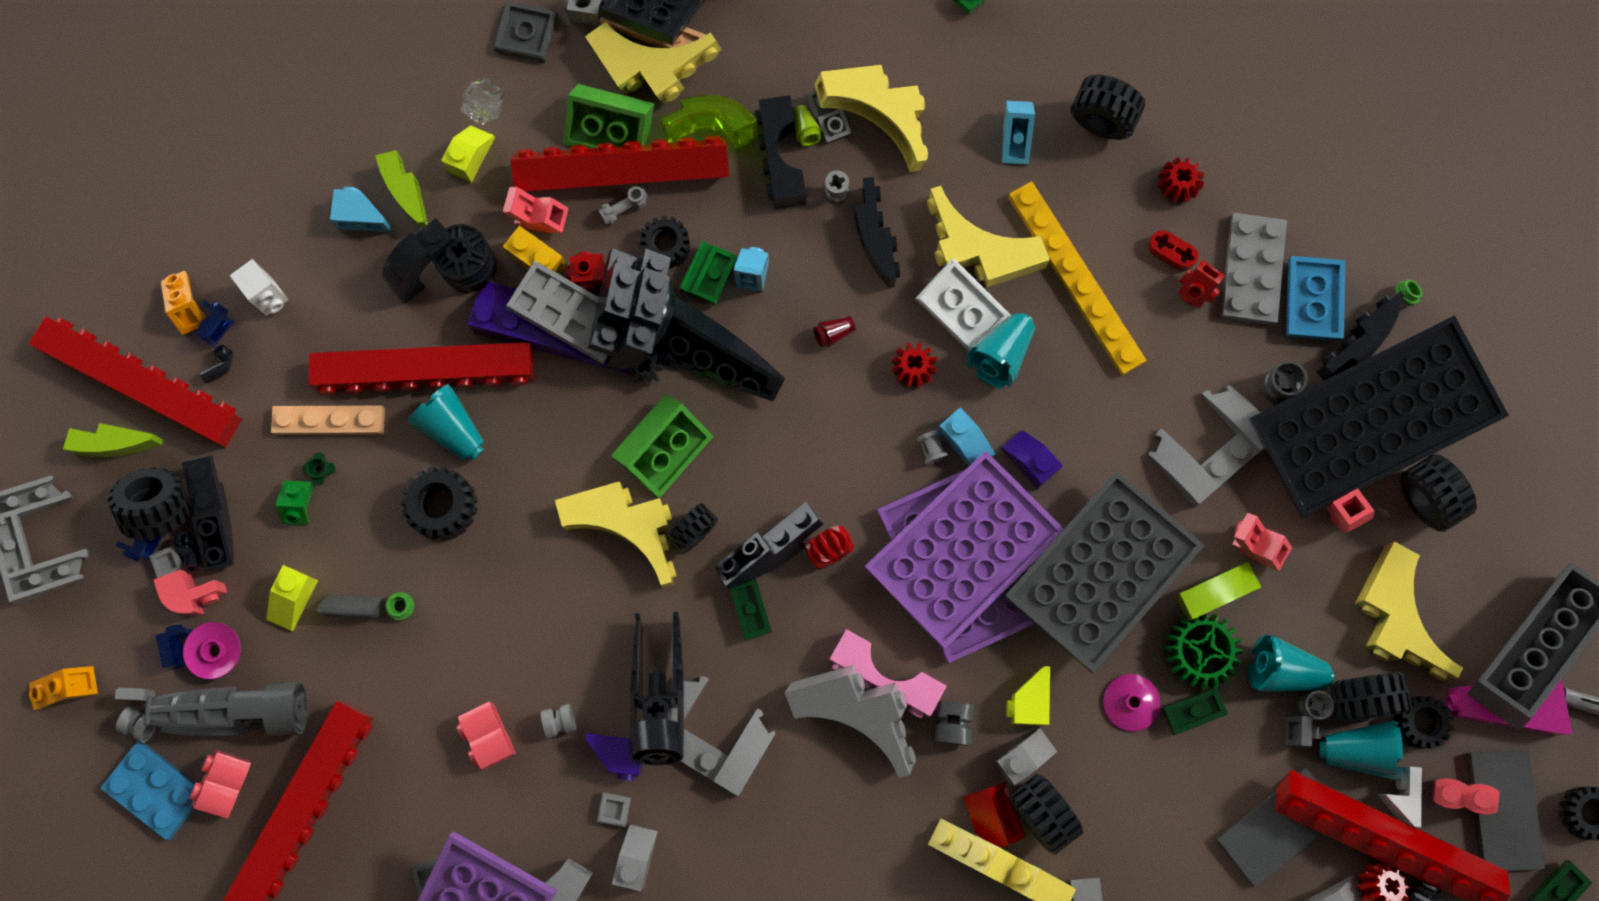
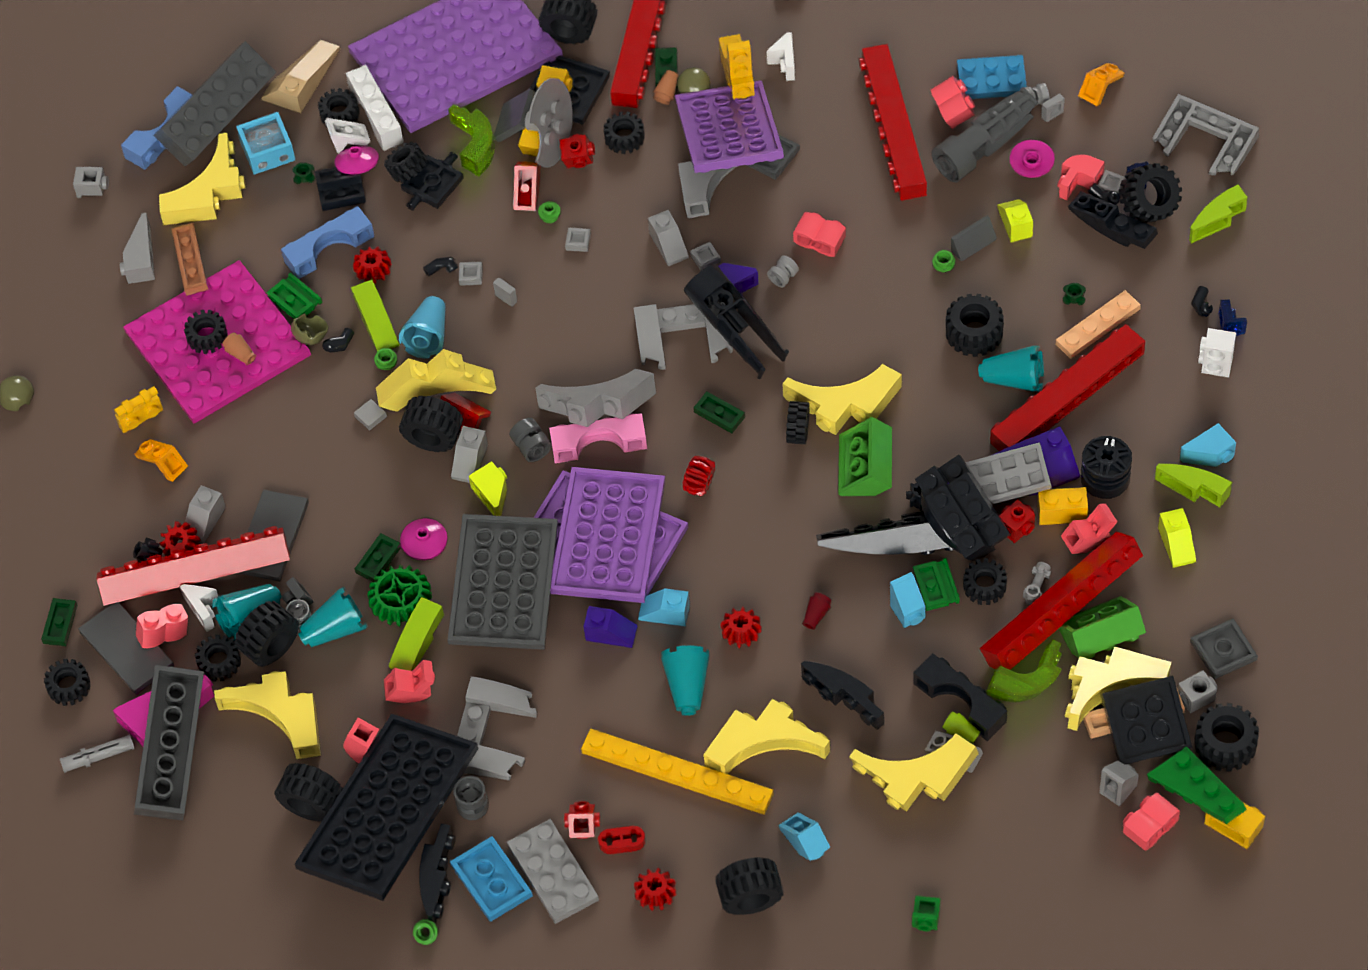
camera: 145 degrees right, 20 degrees down
(136, 381) = (1240, 254): red brick -> none
(169, 647) = (1058, 143): clear blue bracket -> none
(180, 303) = (1268, 314): light orange bracket -> none
(294, 501) = (1069, 265): green bracket -> none
(410, 258) = (1131, 435): black arch -> none
(482, 101) = (1204, 577): clear brick -> none
(767, 552) = (737, 449): black slope -> none
(842, 180) = (897, 701): light grey bush -> none
(932, 447) = (683, 584): light grey bush -> none
(962, 305) = (739, 685): white tile -> none

